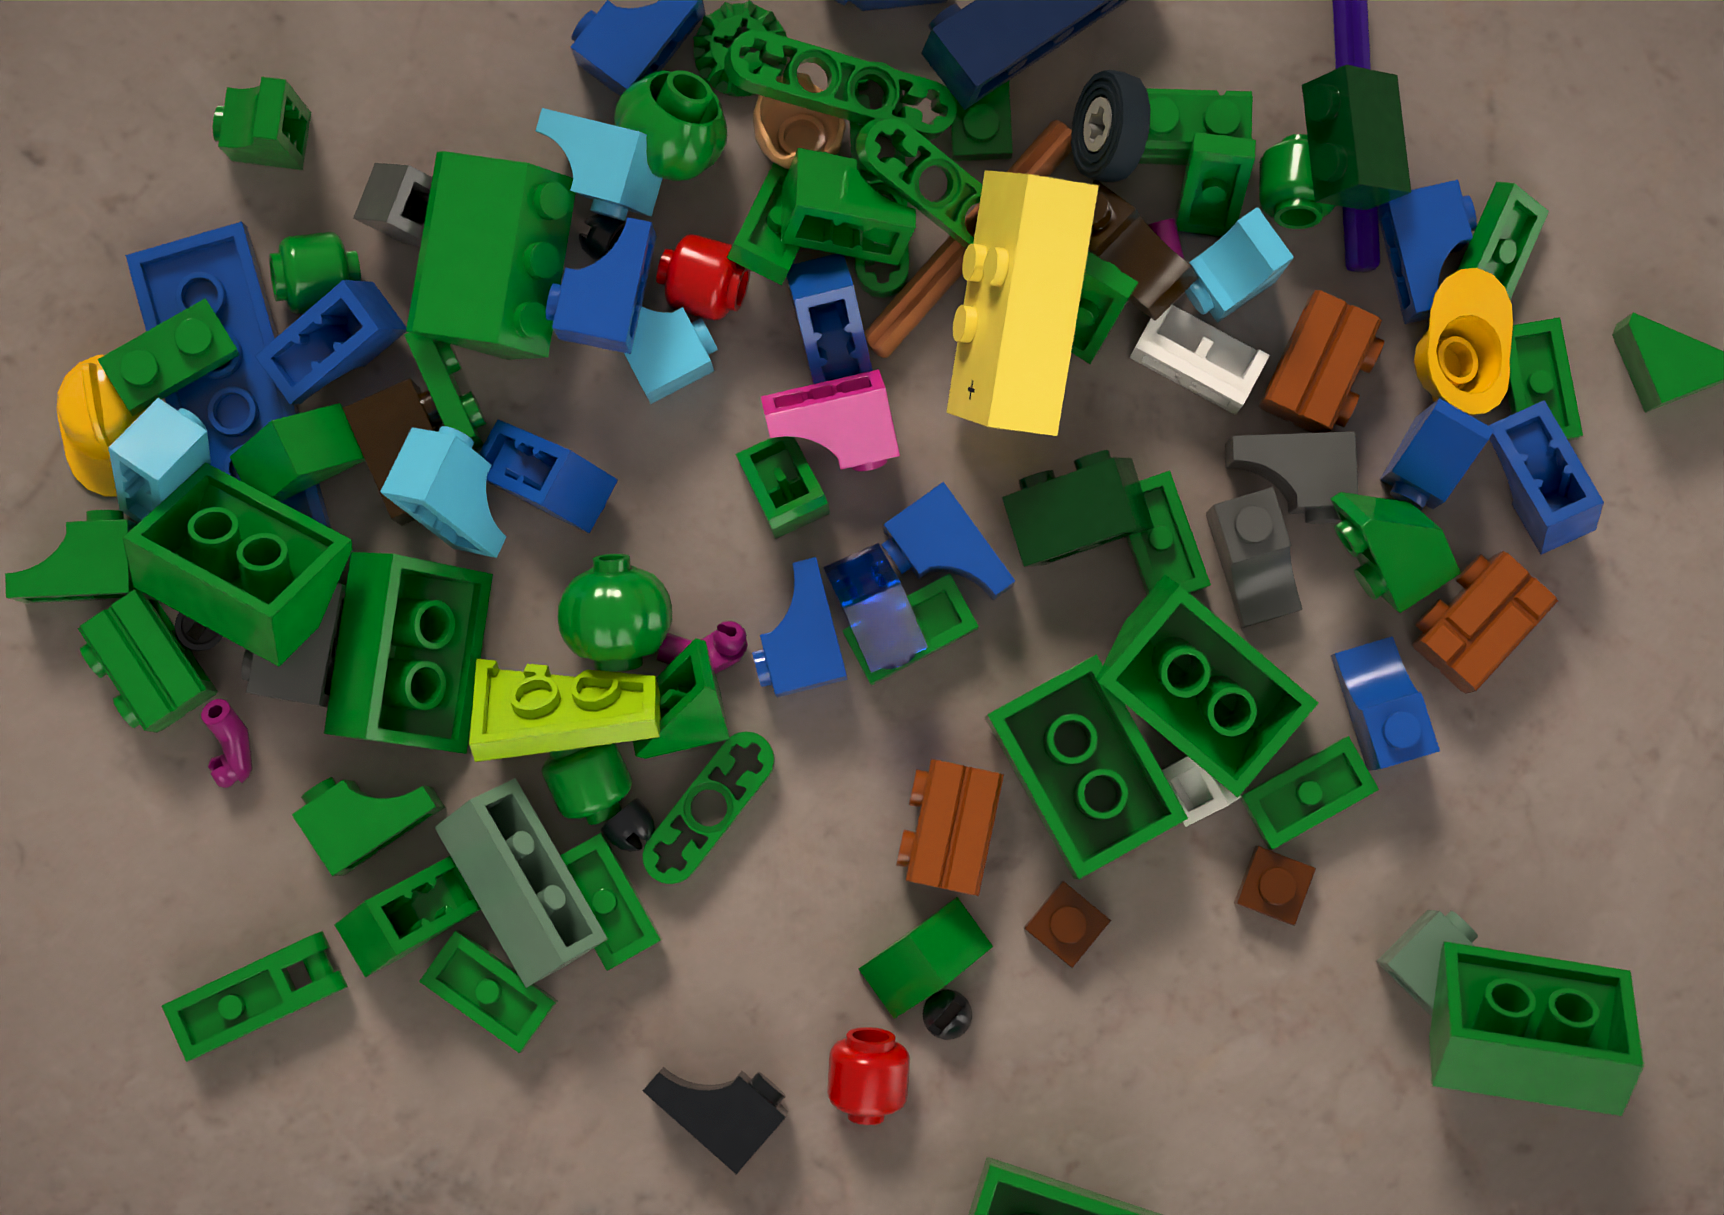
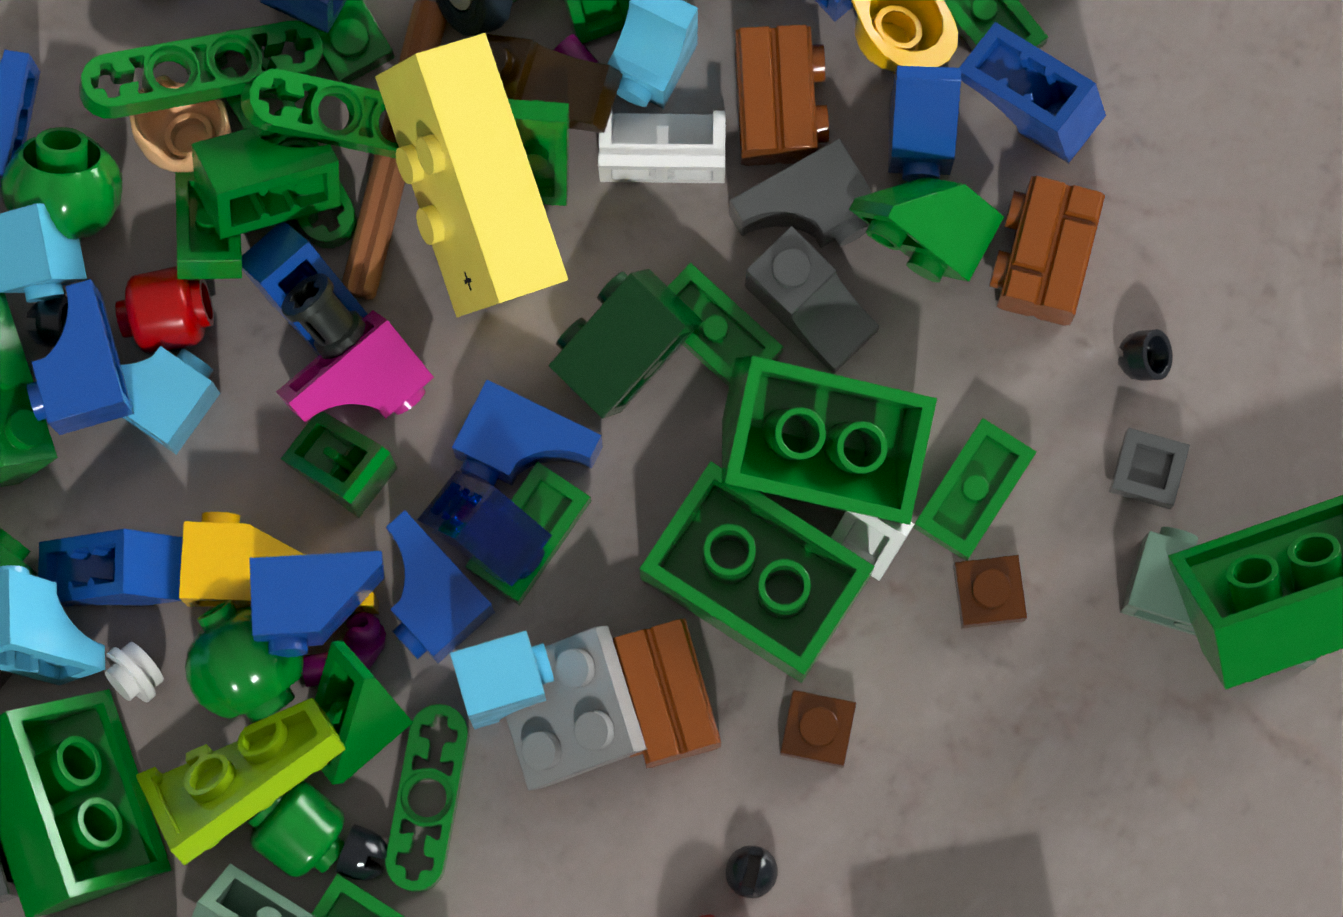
camera: 30 degrees left, 5 degrees down
(518, 572) = (133, 672): none -> white plate
(658, 534) = (218, 562): none -> yellow slope
(694, 591) = (308, 597): none -> blue slope
(724, 26) = (65, 72): green gear -> none
(823, 744) = (501, 677): none -> medium azure arch
(833, 355) = (323, 316): none -> pearl dark grey bush
(866, 797) = (584, 717): none -> light grey plate
(926, 958) = (703, 830): green slope -> none
(1384, 705) = (1000, 373): blue arch -> none
(1468, 854) = (1149, 468): none -> dark grey plate
(1518, 755) = (1146, 355): none -> black hinge

